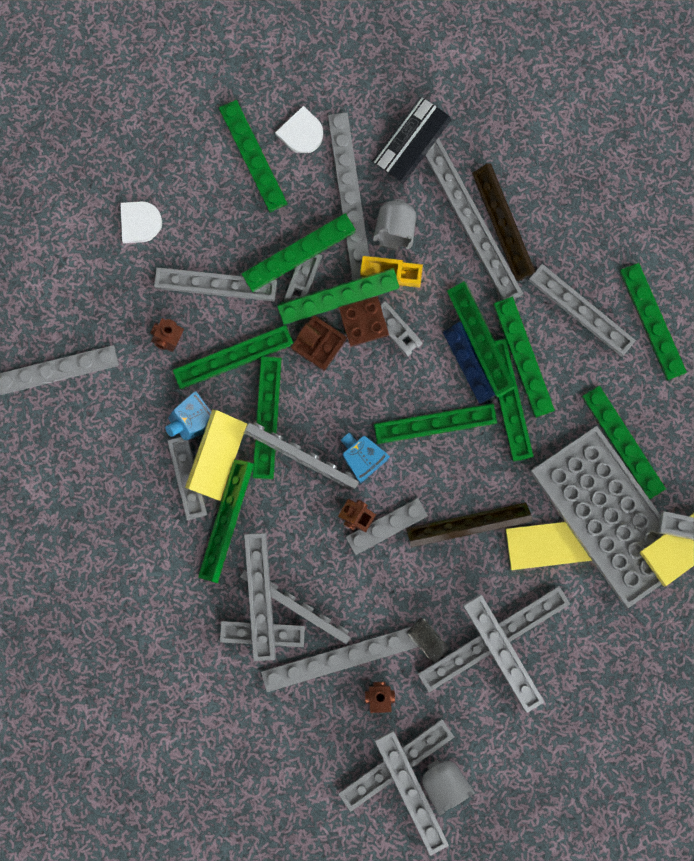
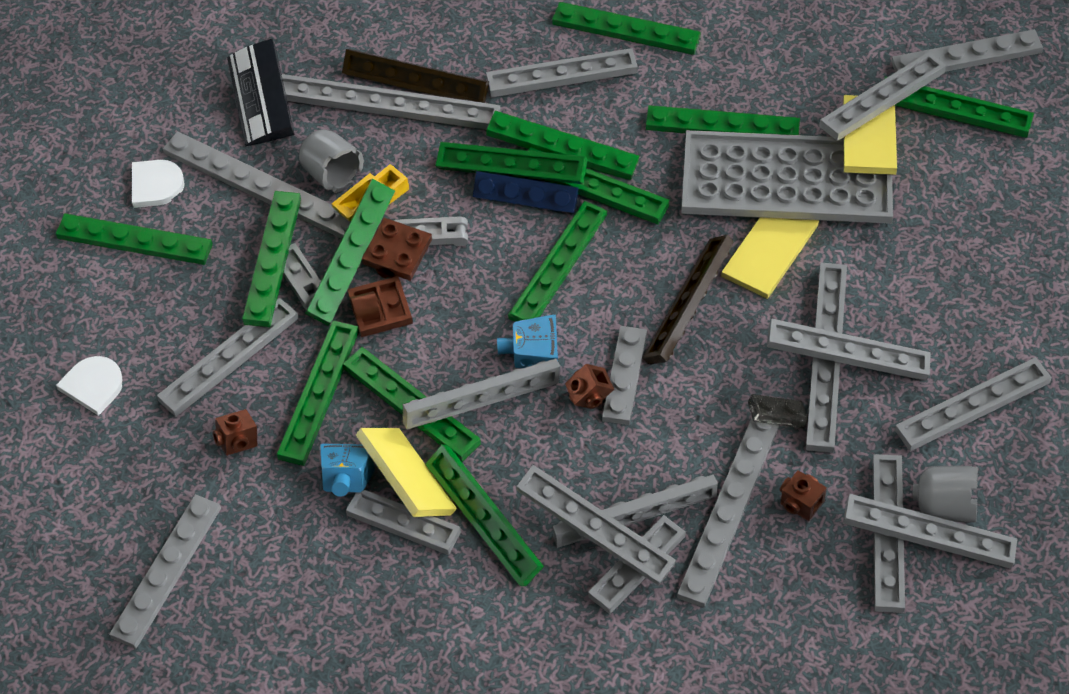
camera: 45 degrees left, 25 degrees down
(528, 753) = (972, 404): none -> light grey plate

